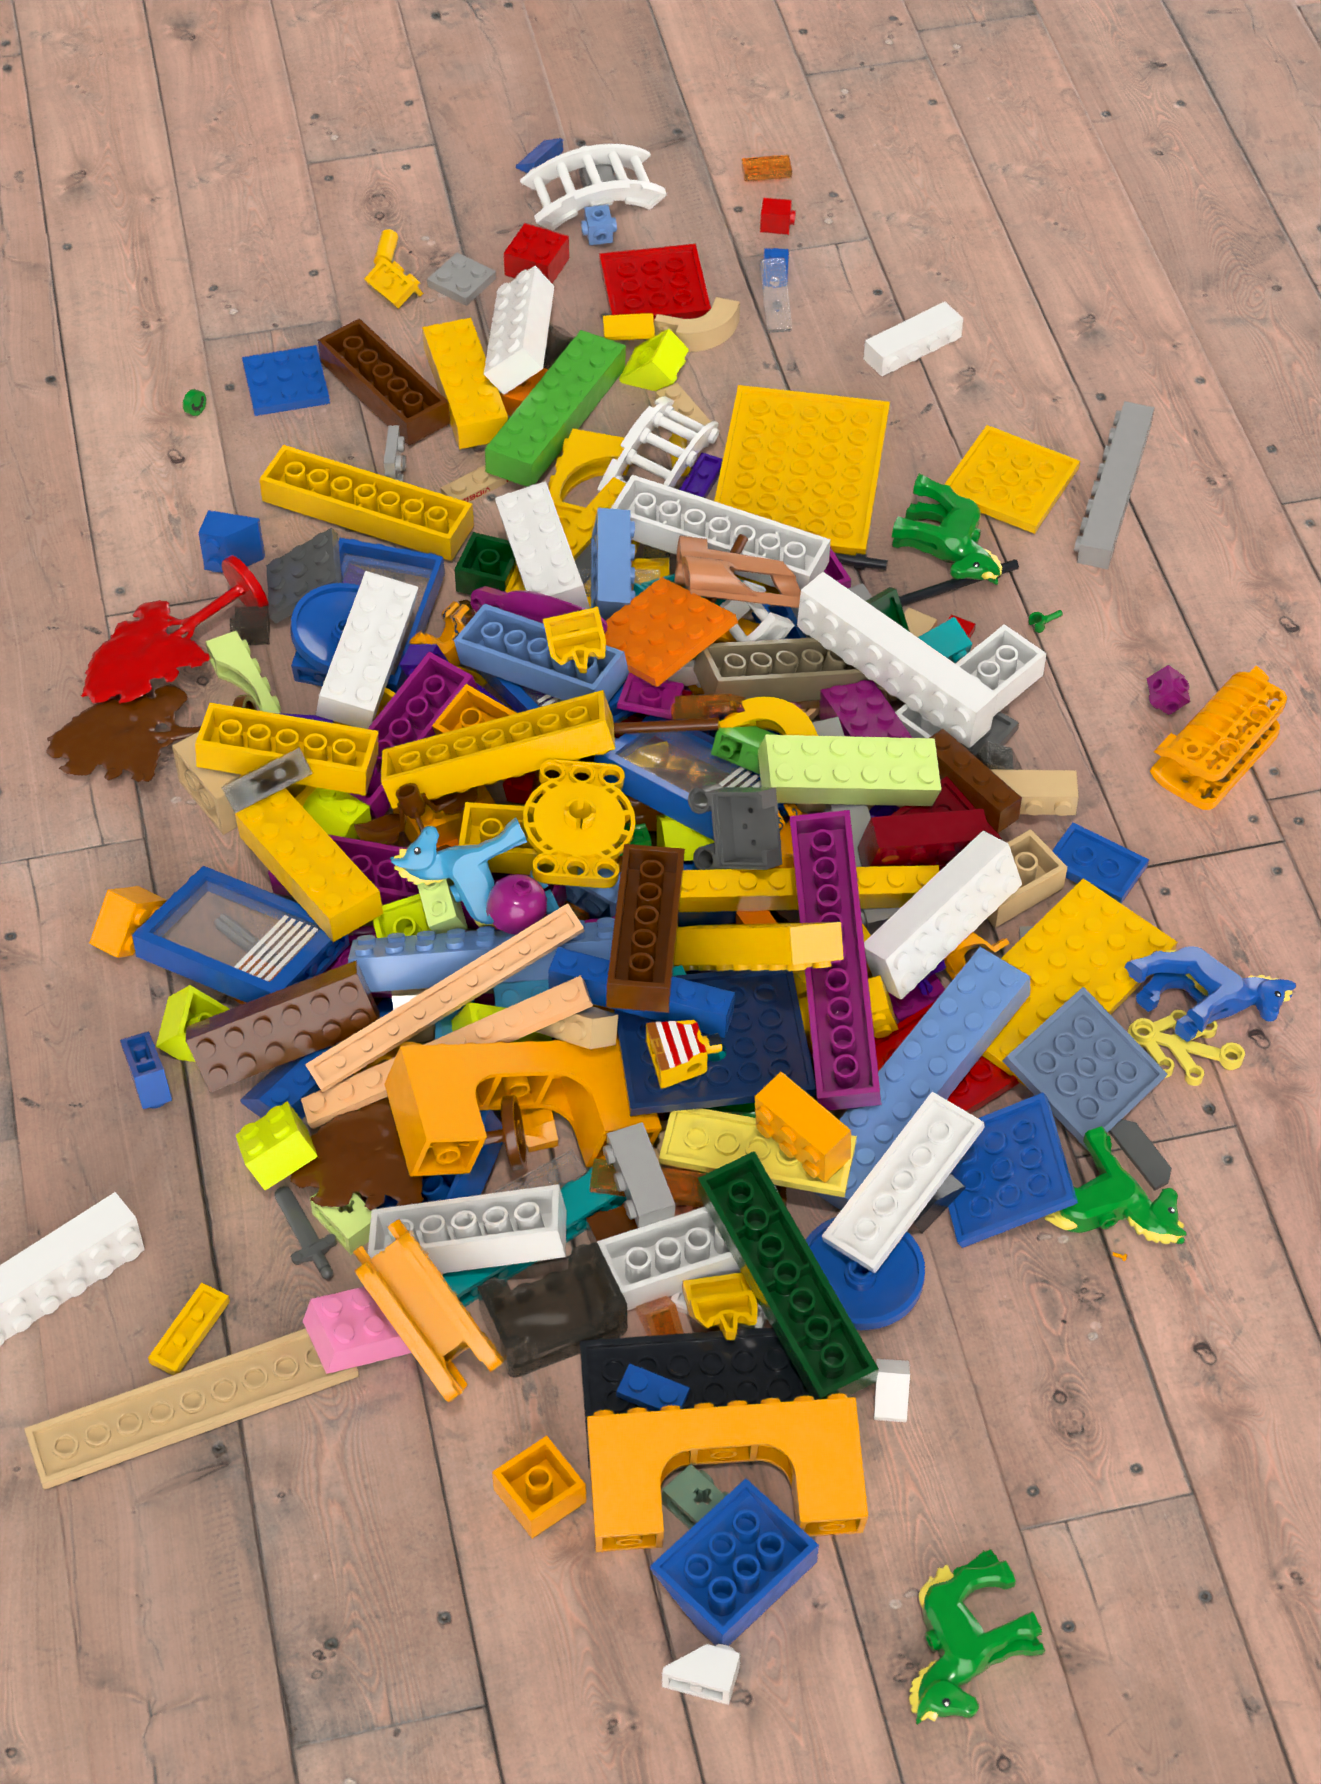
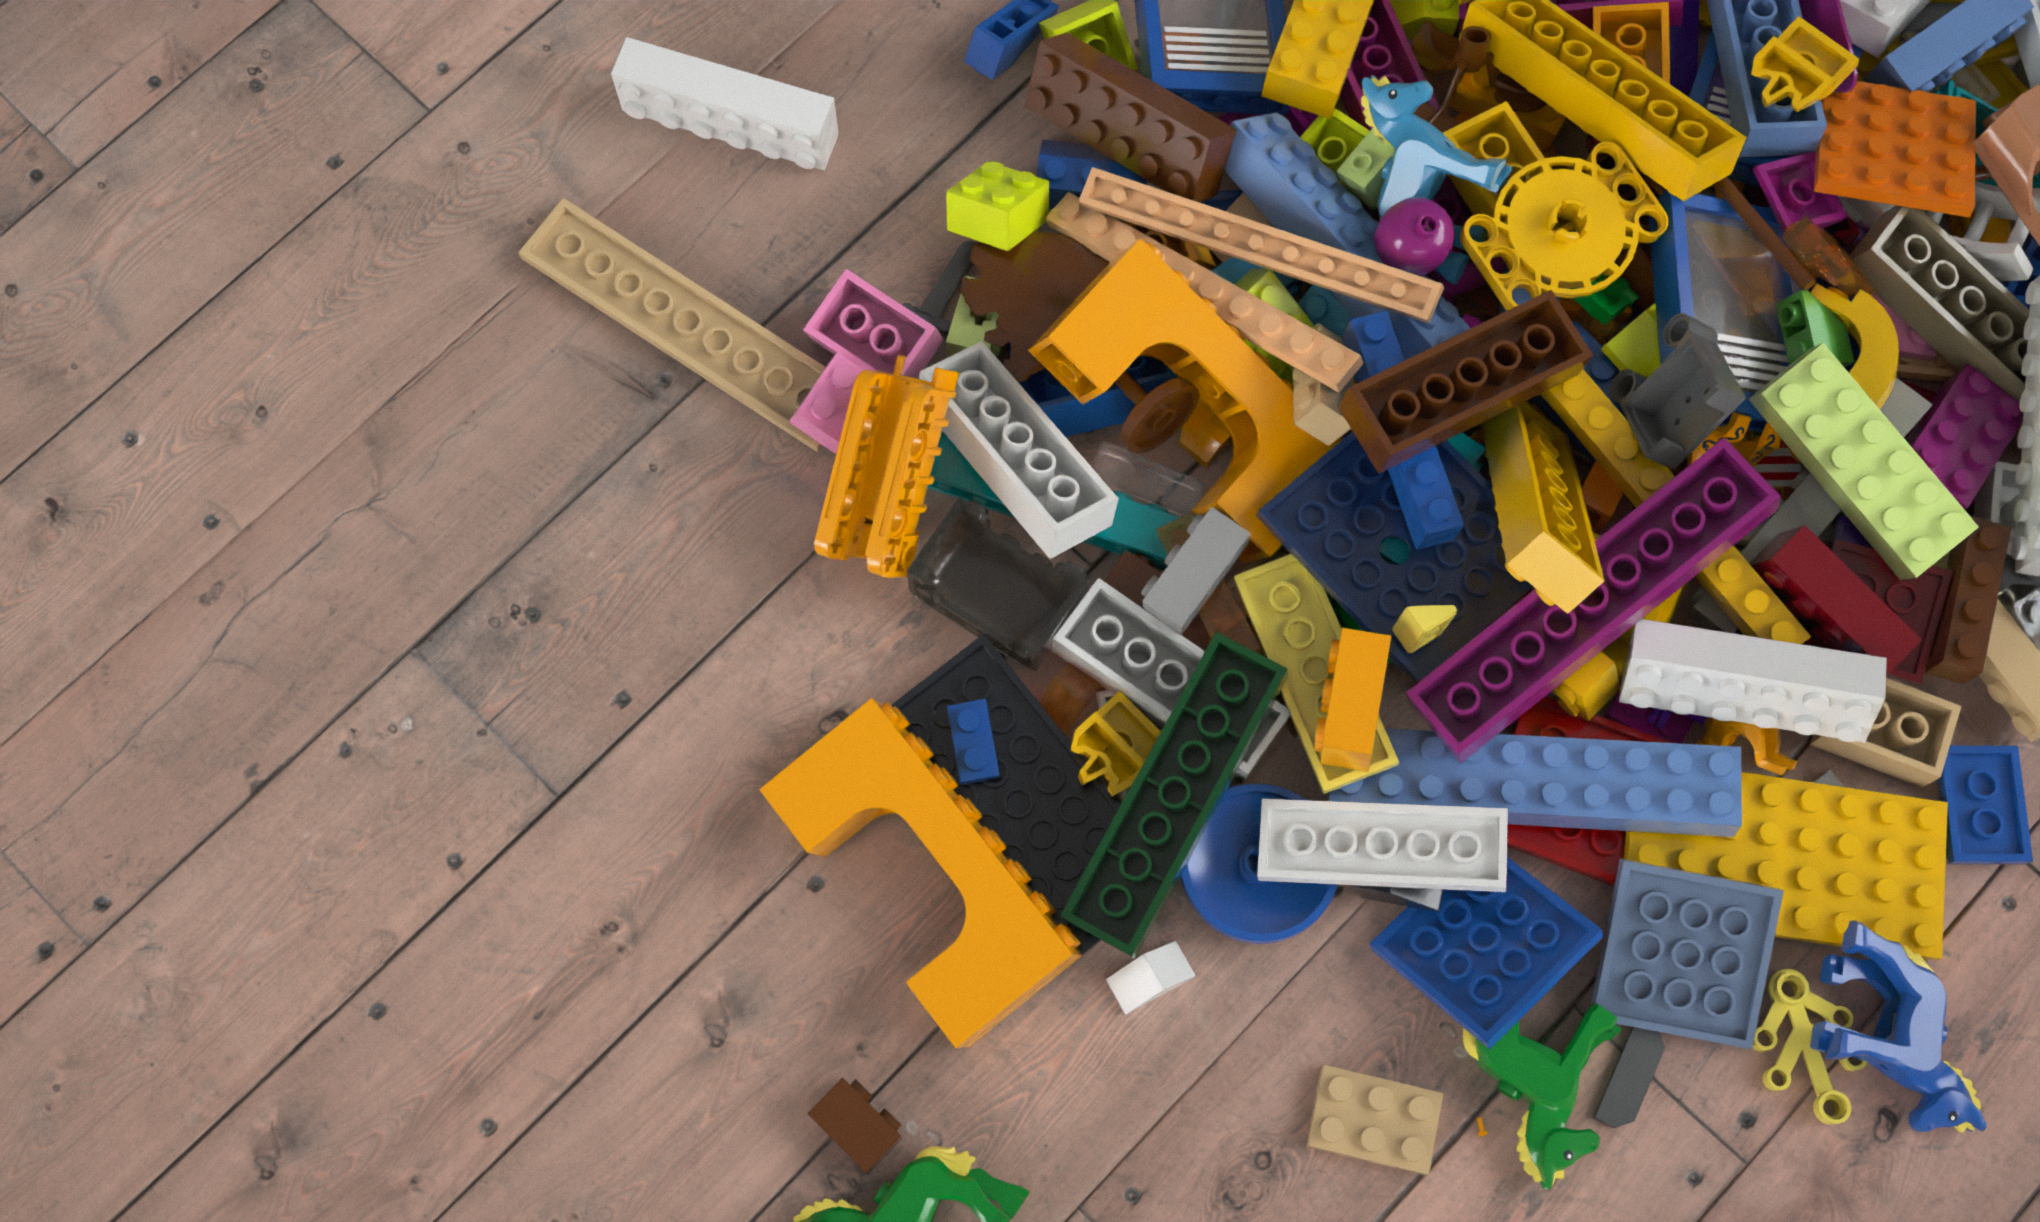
camera: 55 degrees right, 20 degrees up
(188, 1329) = (761, 267): yellow plate -> none
(300, 1274) = (872, 328): none -> bright pink brick
(539, 1486) = (799, 697): light orange brick -> none
(679, 1050) = (1358, 514): torso -> none
(686, 1490) = (884, 843): sand green brick -> none
(704, 1673) = (710, 986): white slope -> none
(735, 1563) = (836, 940): blue slope -> none
(783, 1053) = (1422, 625): none -> light yellow slope
(872, 1633) = (856, 1124): none -> reddish brown brick
(1075, 1313) = (1374, 1120): none -> tan plate

